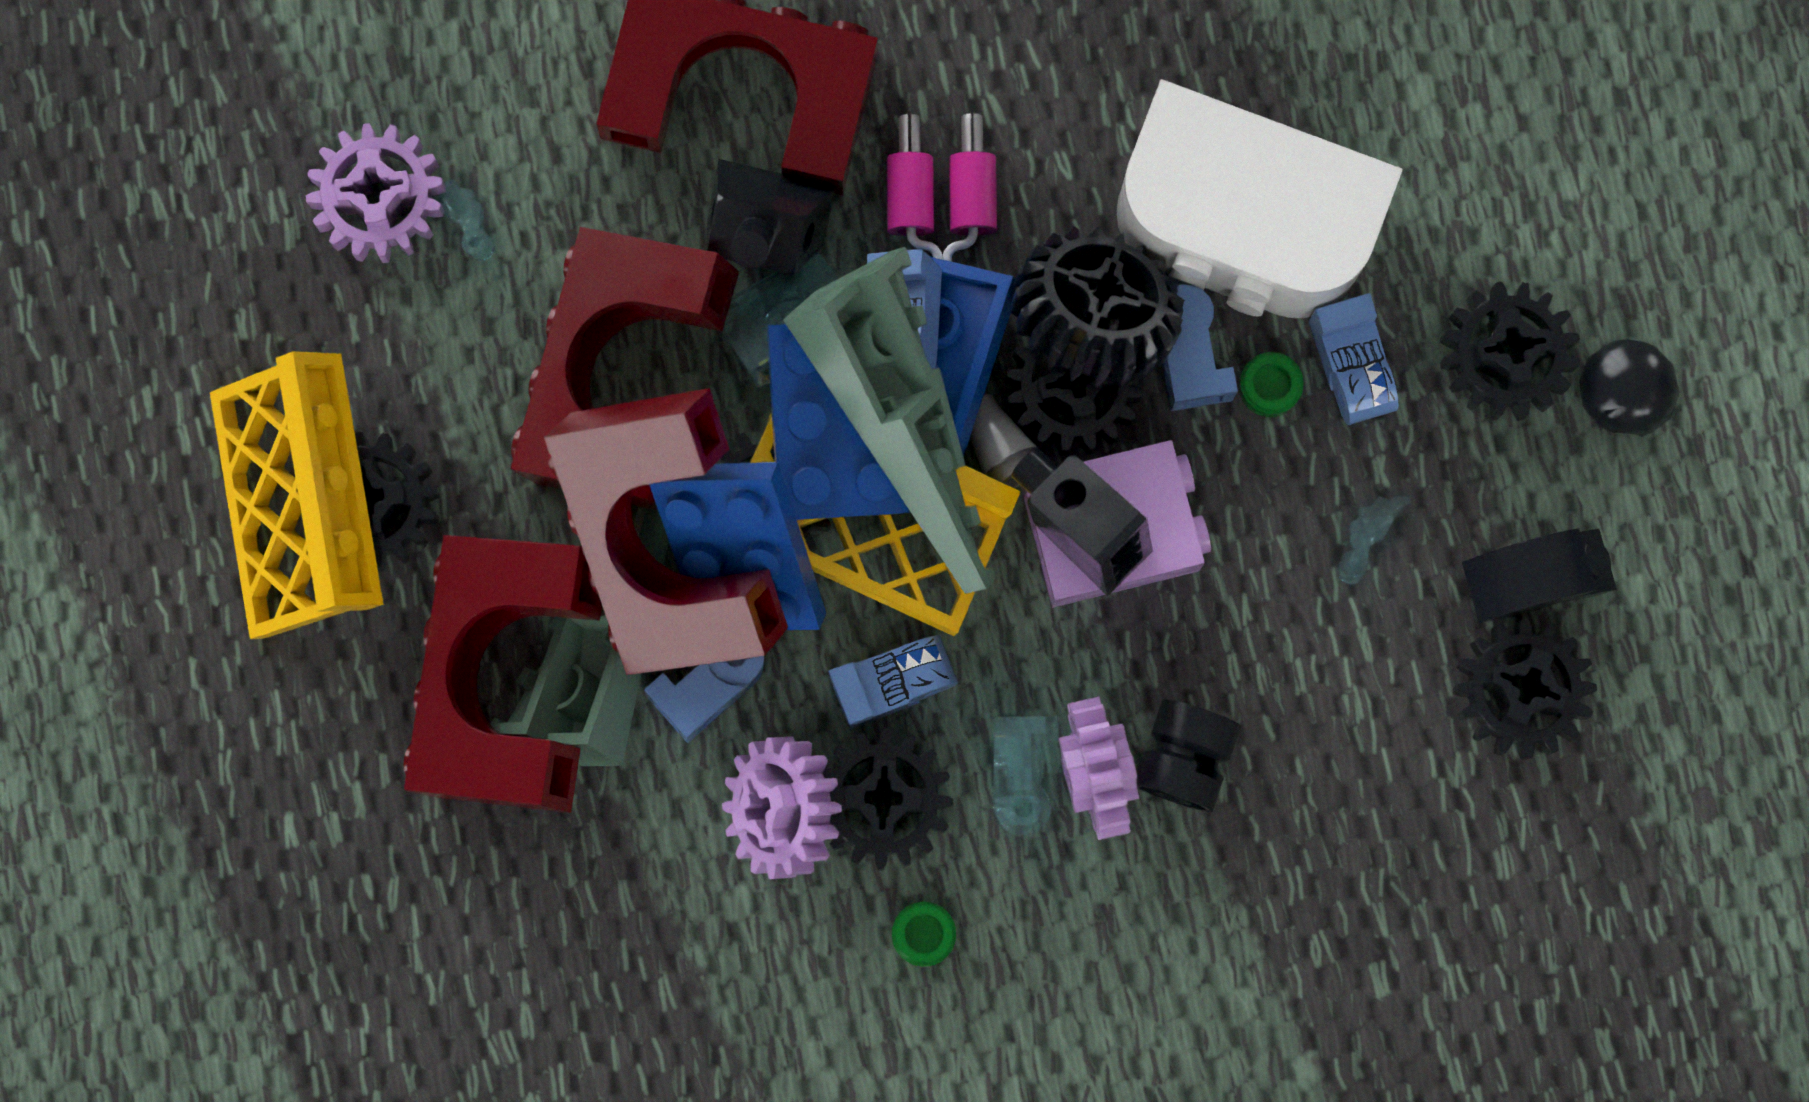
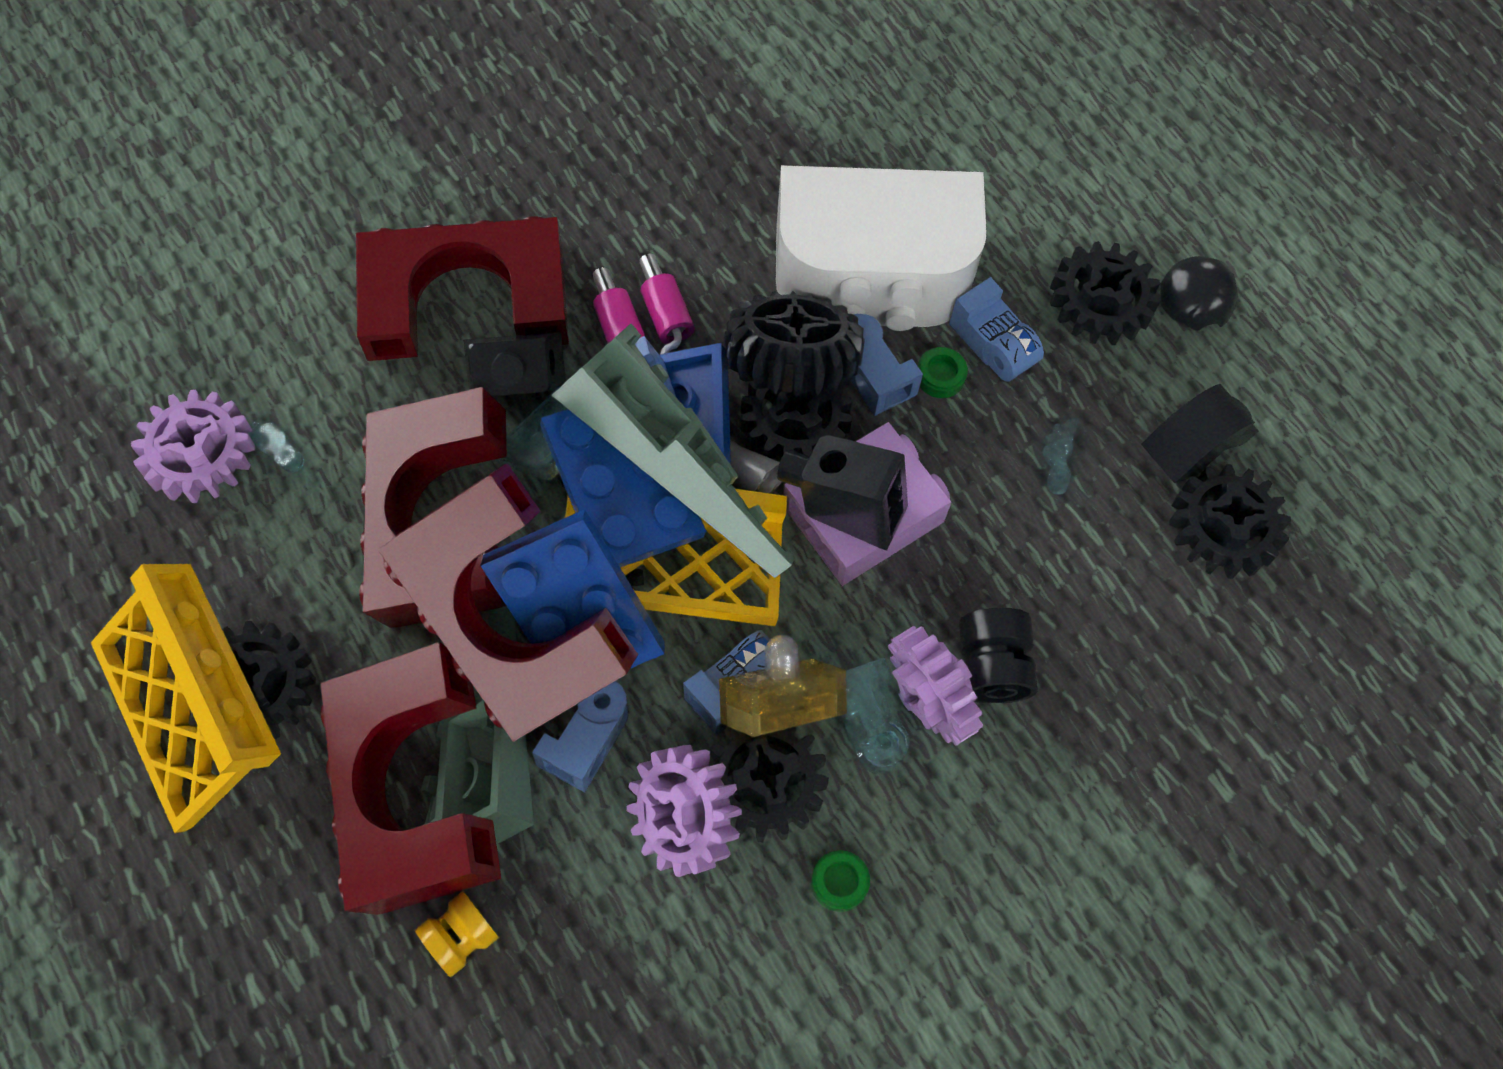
camera: 20 degrees left, 15 degrees down
(523, 845) = (469, 927): none -> yellow wheel
(930, 721) = (782, 693): none -> clear yellow piece

